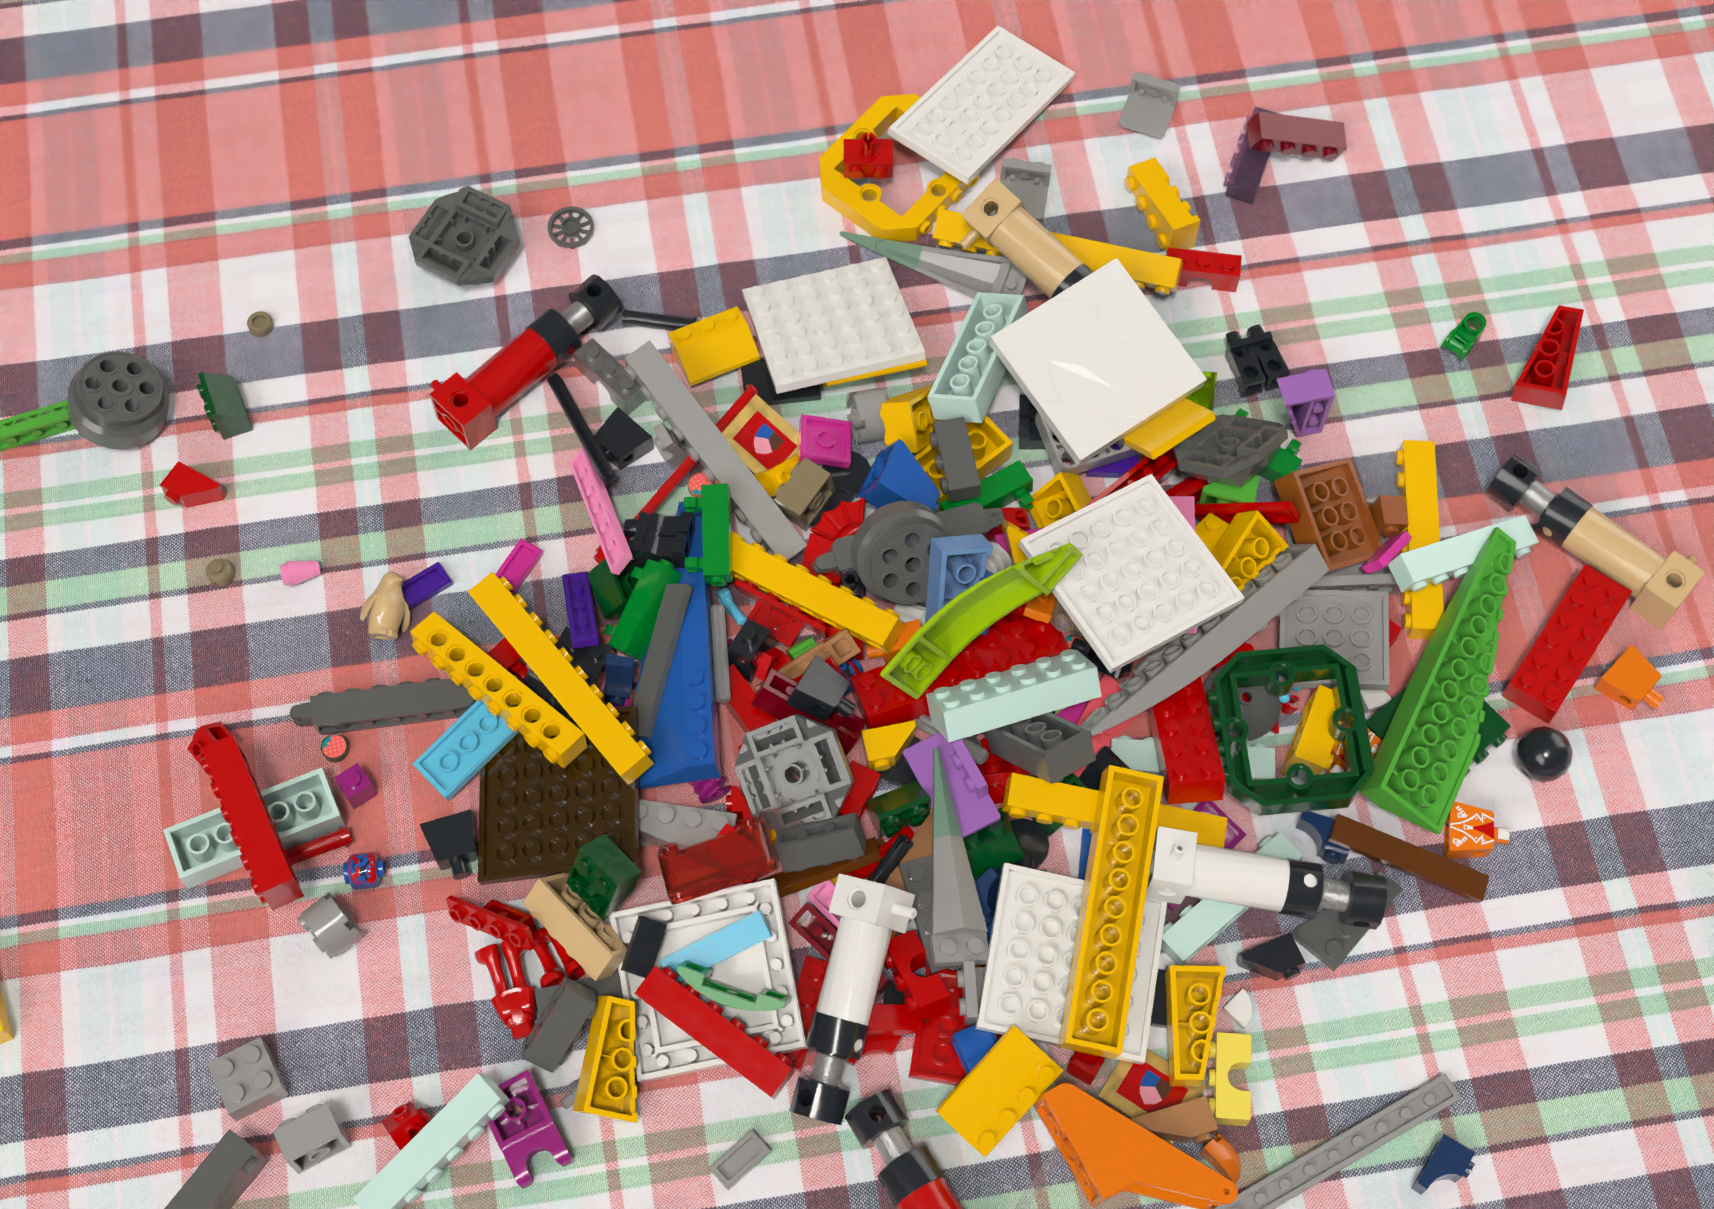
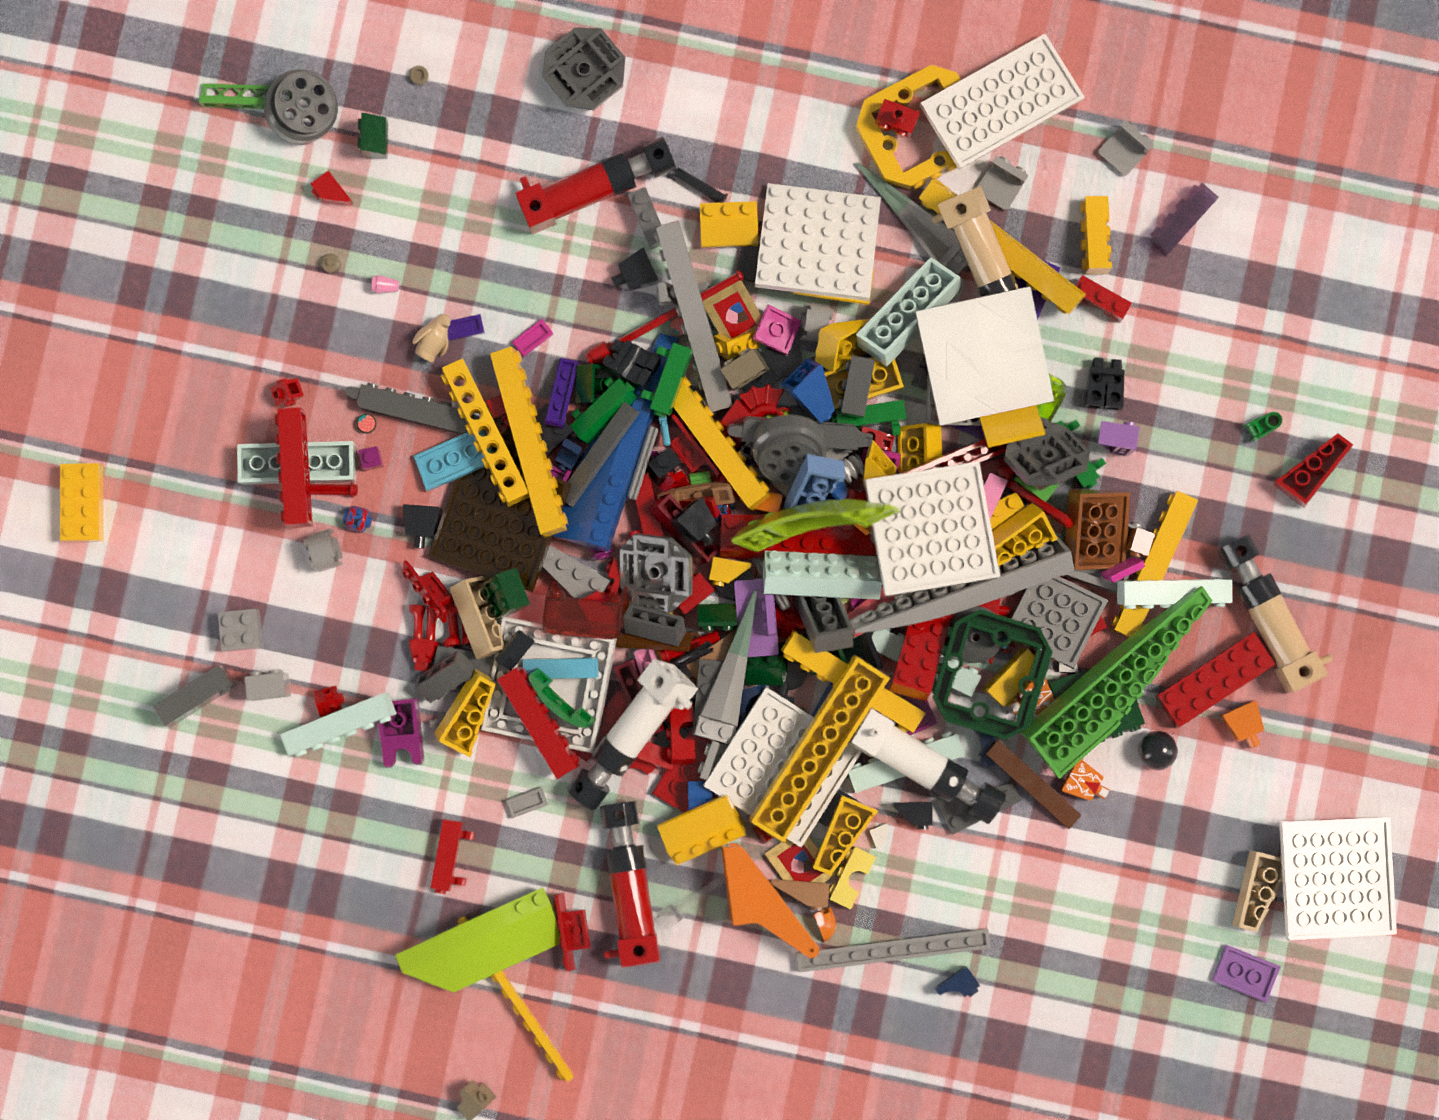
camera: 20 degrees right, 20 degrees up
(570, 227) = (665, 81): dark grey wheel -> none
(581, 428) = (612, 253): black axle -> none
(601, 513) = (601, 325): bright pink tile -> none
(1296, 135) = (1219, 220): brick -> none

